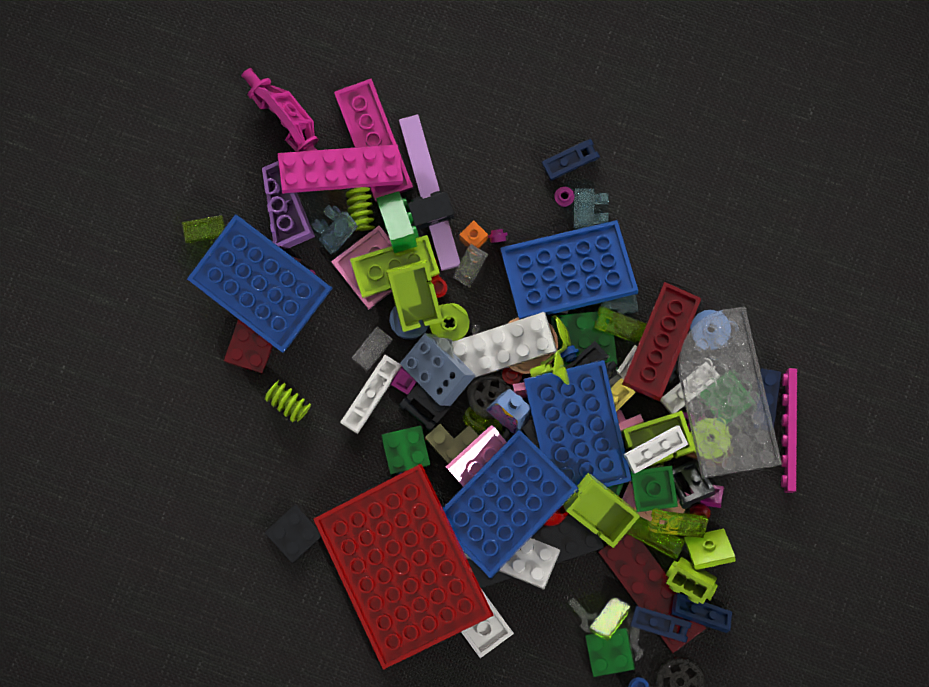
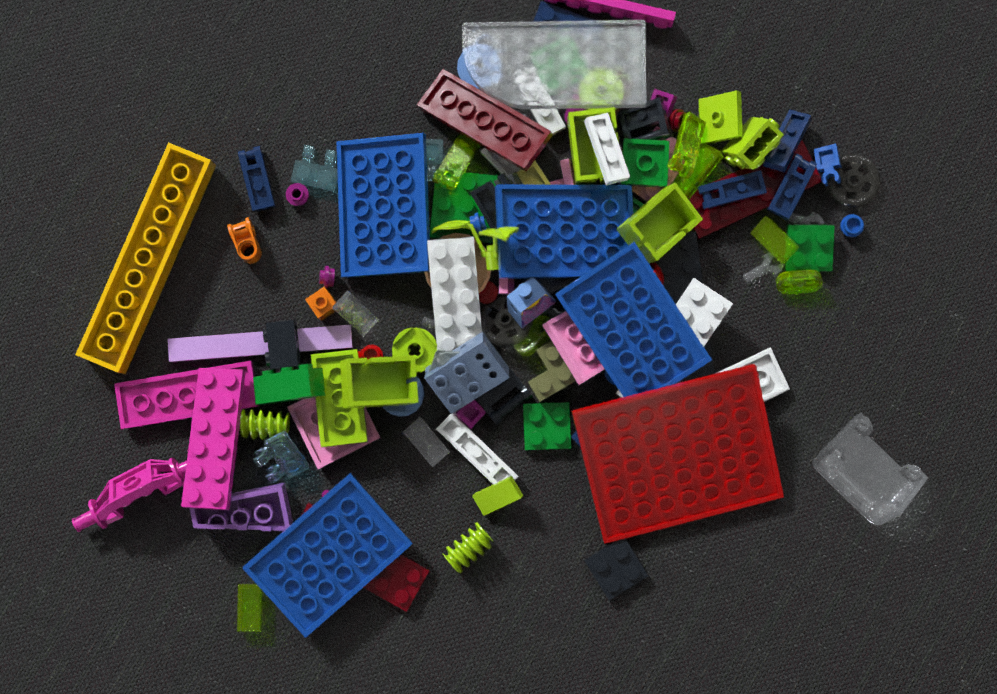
camera: 75 degrees left, 5 degrees up
(337, 418) = (497, 495): none -> lime tile
(482, 82) = (146, 259): none -> yellow brick
(518, 158) = (244, 236): none -> orange piece
(577, 648) = (799, 281): none -> clear neon green plate
(646, 571) = (733, 189): none -> dark blue plate
(692, 653) = (827, 161): none -> blue plate

